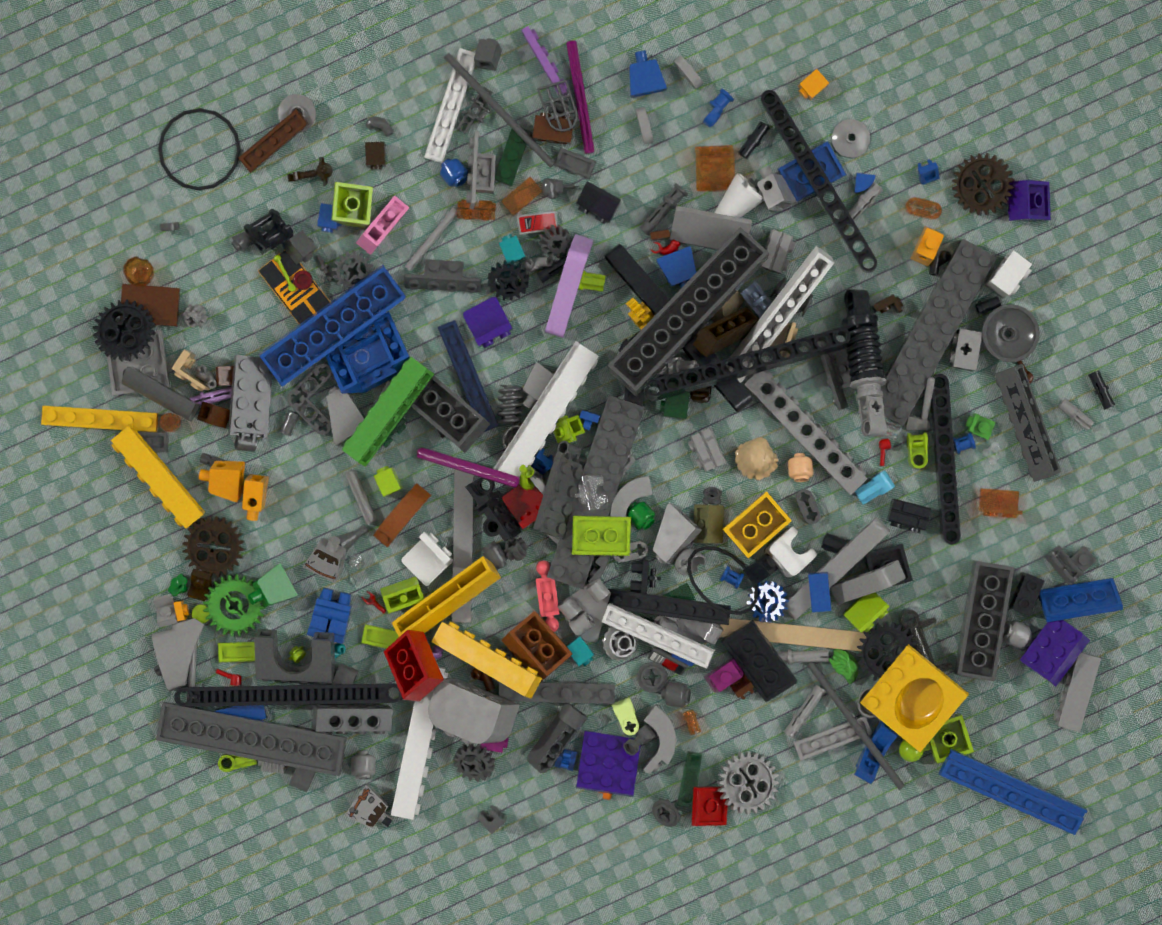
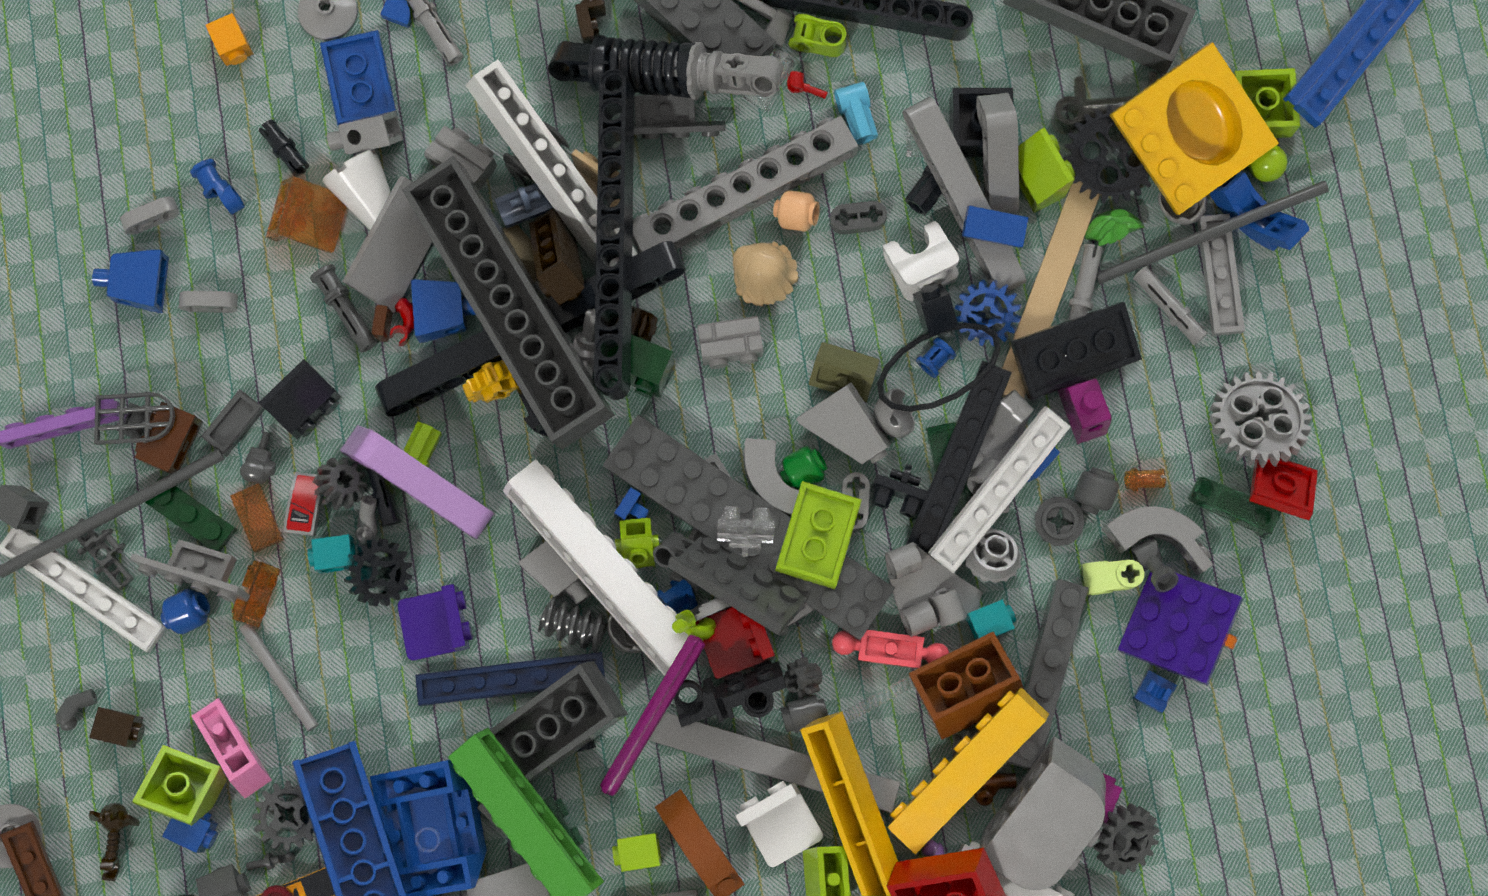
camera: 75 degrees left, 10 degrees down
(443, 276) = (342, 674): dark grey bracket -> none
(493, 820) = (1230, 833): dark grey hinge -> none
(556, 738) = (1119, 696): dark grey beam -> none
(580, 97) = (126, 385): magenta axle -> none
(602, 561) = (876, 562): dark grey slope -> none
(630, 397) = (614, 429): black plate -> none
(665, 818) = (1285, 561): dark grey gear -> none
(666, 660) = (1040, 490): slope -> none
(712, 496) = (803, 354): dark grey plate -> none
(742, 686) = (1111, 386): reddish brown tile -> none
(756, 524) = (865, 296): yellow brick -> none
(815, 172) = (359, 63): black beam -> none
(909, 515) = (911, 73): black brick -> none

